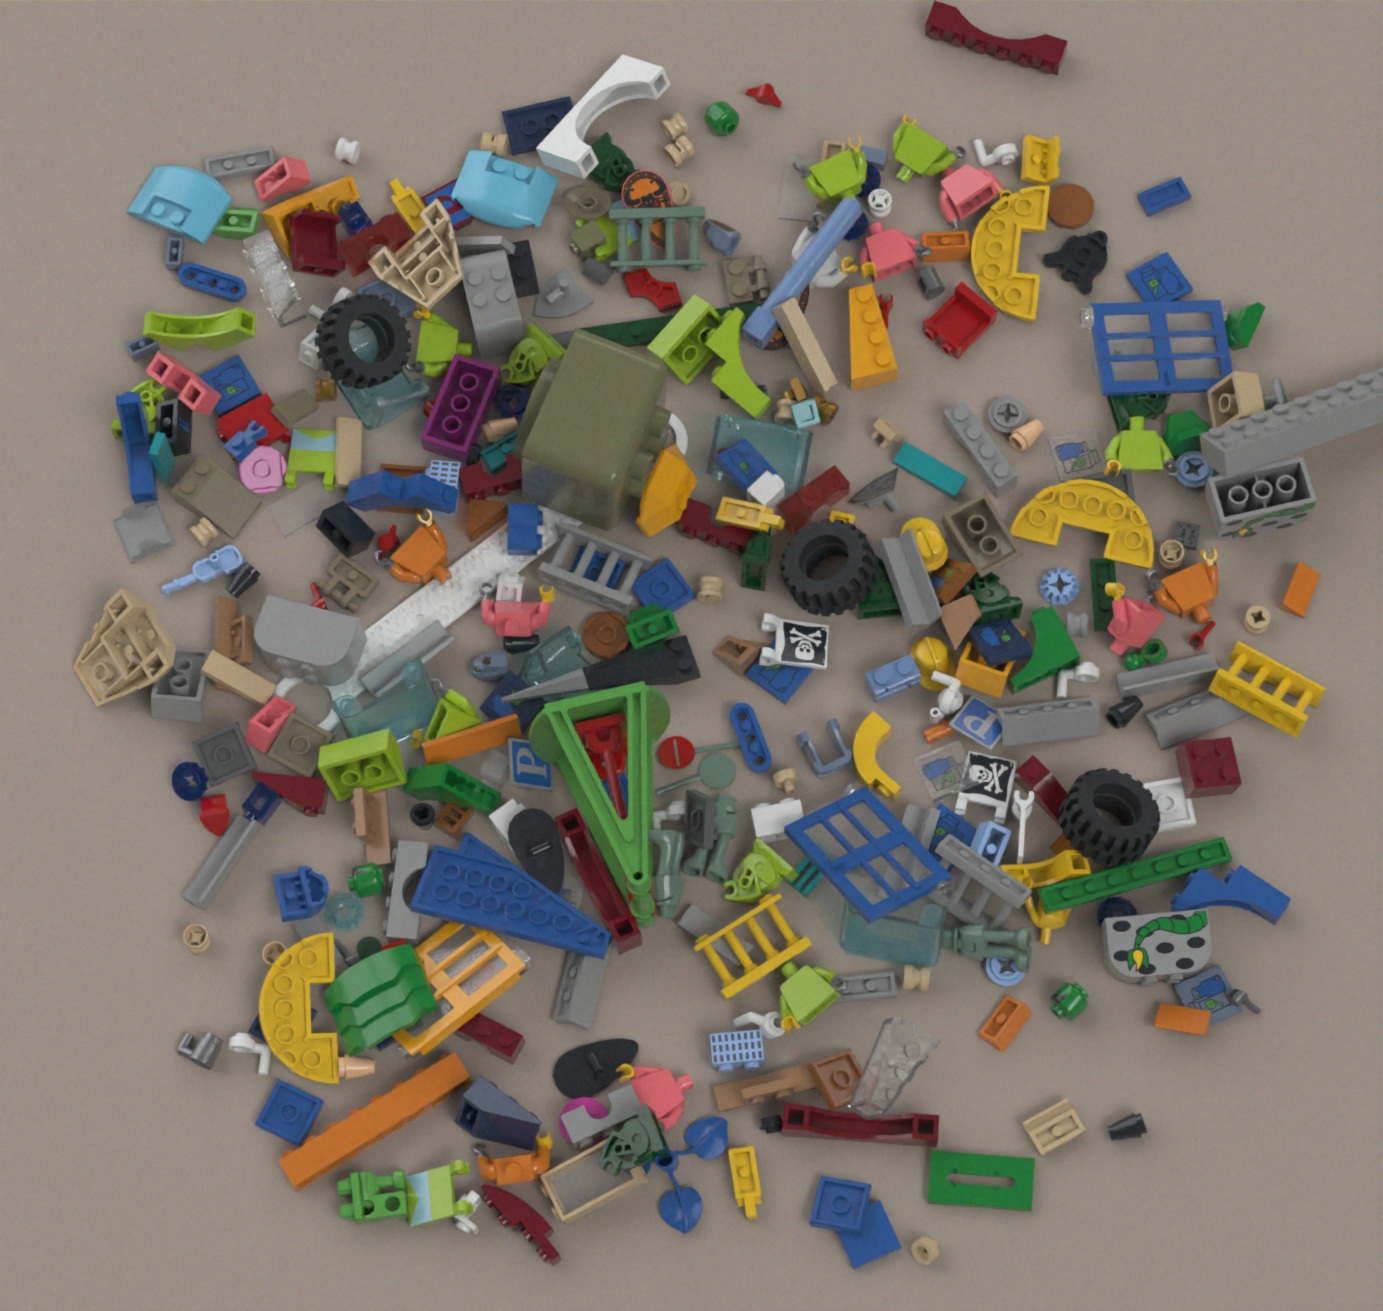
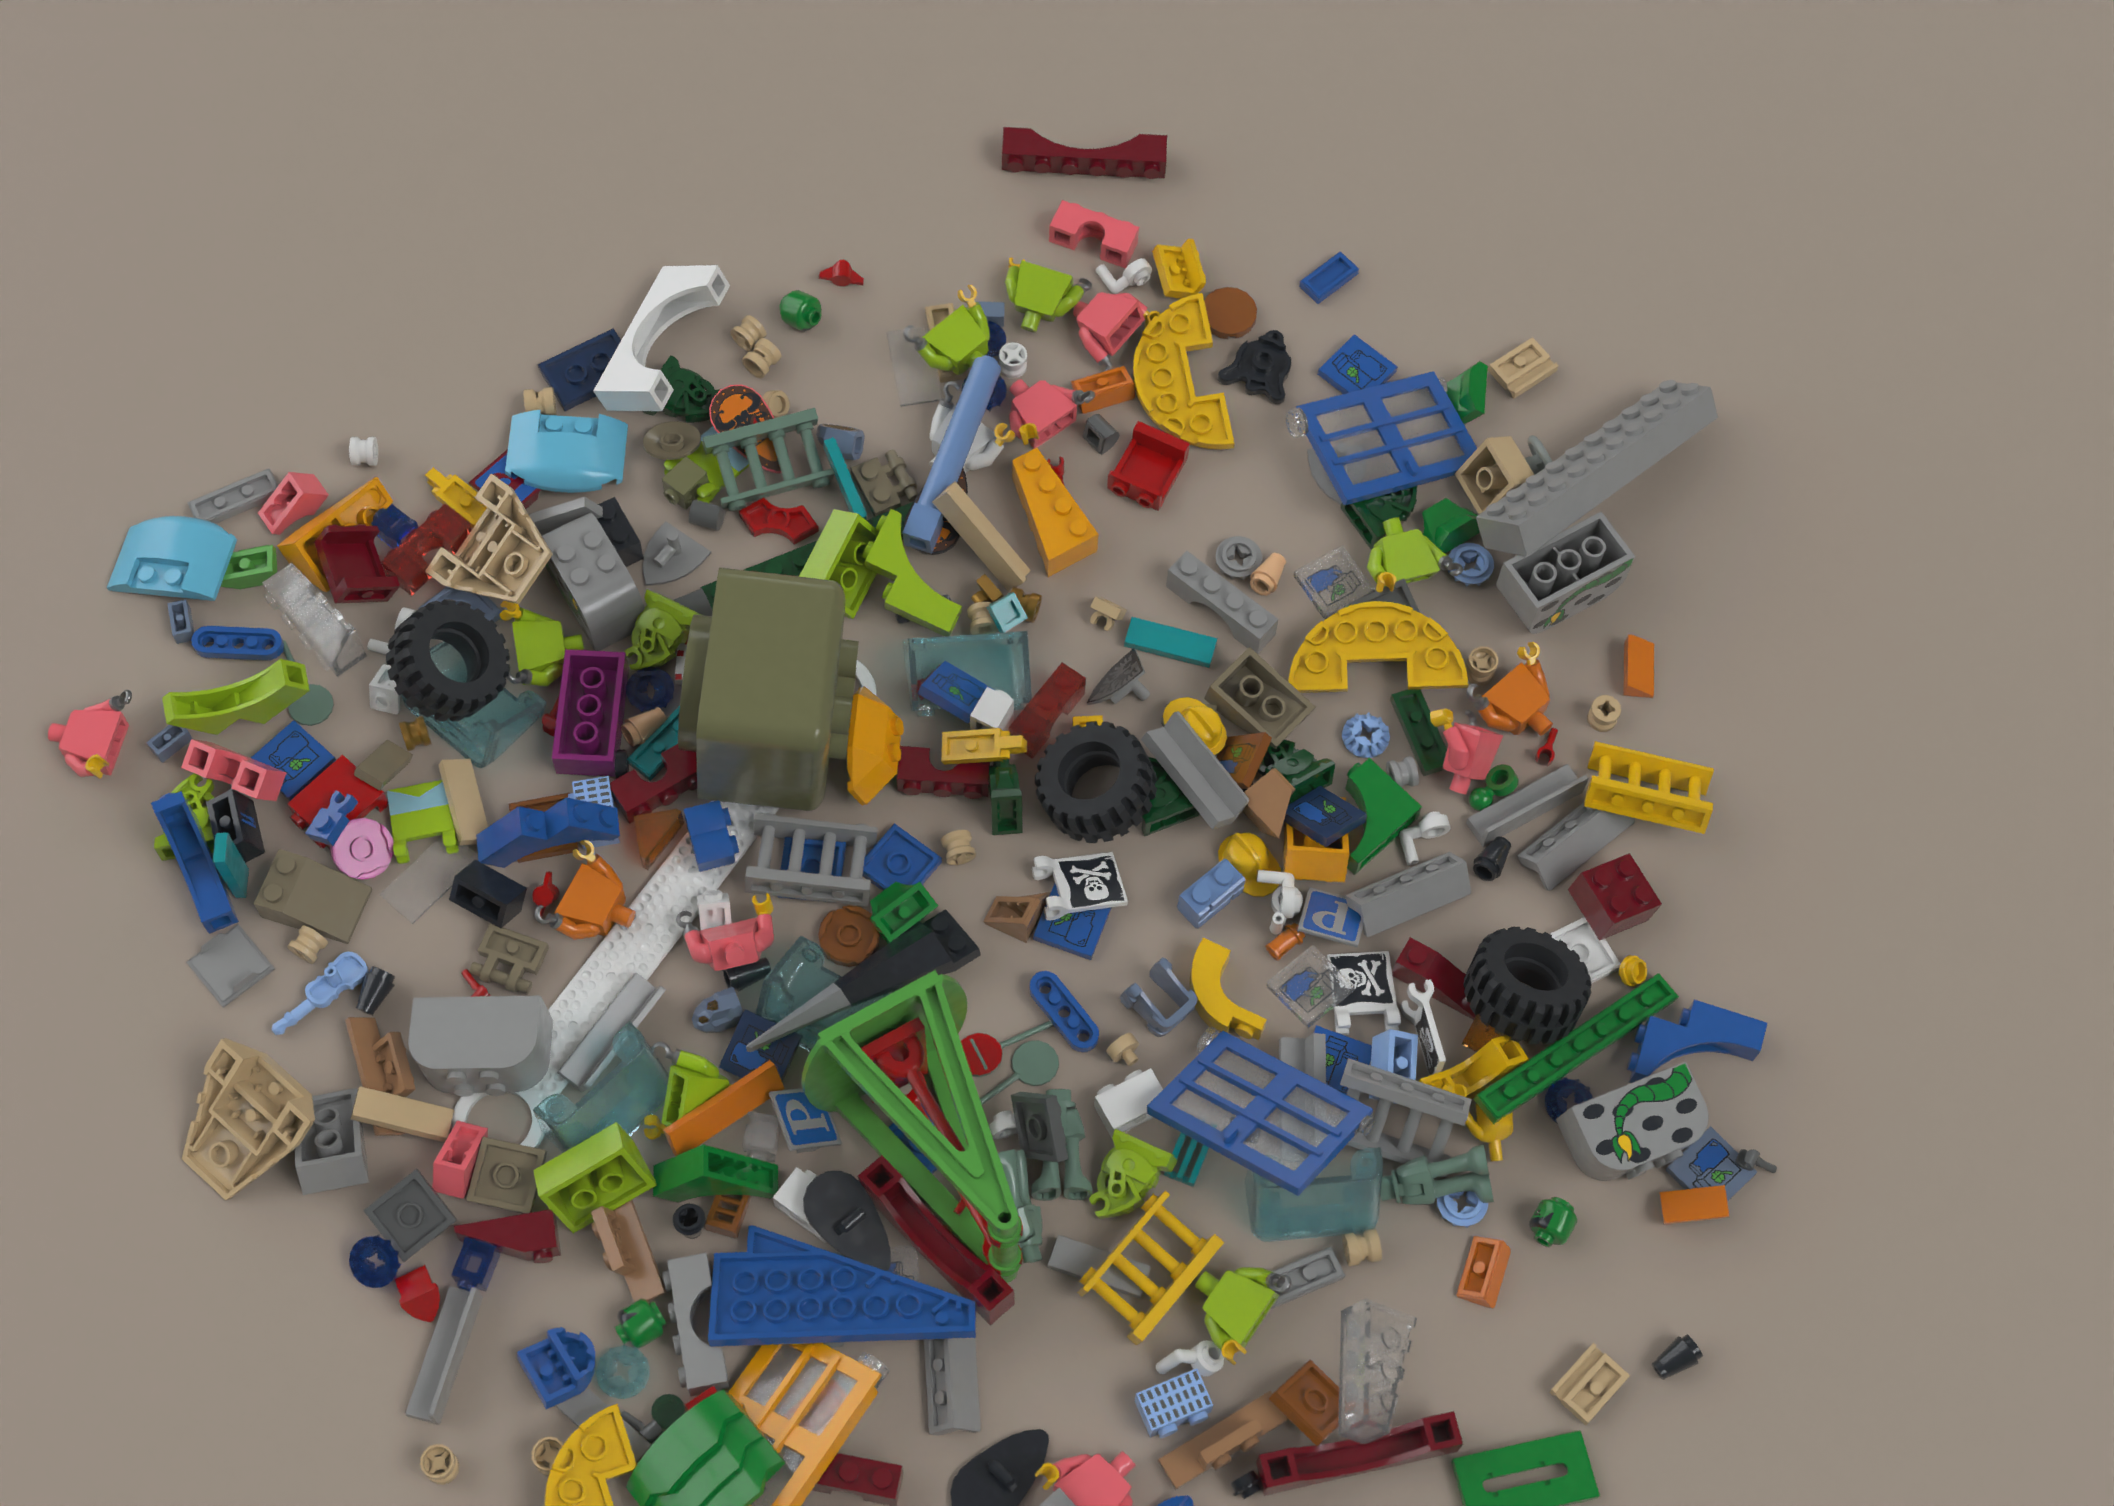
camera: 25 degrees left, 5 degrees down
(87, 329) = (93, 736): none -> coral torso
(258, 347) = (314, 705): none -> sand green piece
(712, 271) = (843, 477): none -> teal tile
(968, 98) = (1075, 223): none -> coral arch
(1187, 534) = (1489, 636): dark grey tile -> none
(1203, 829) = (1632, 970): none -> yellow plate
(1297, 315) = (1523, 368): none -> tan plate

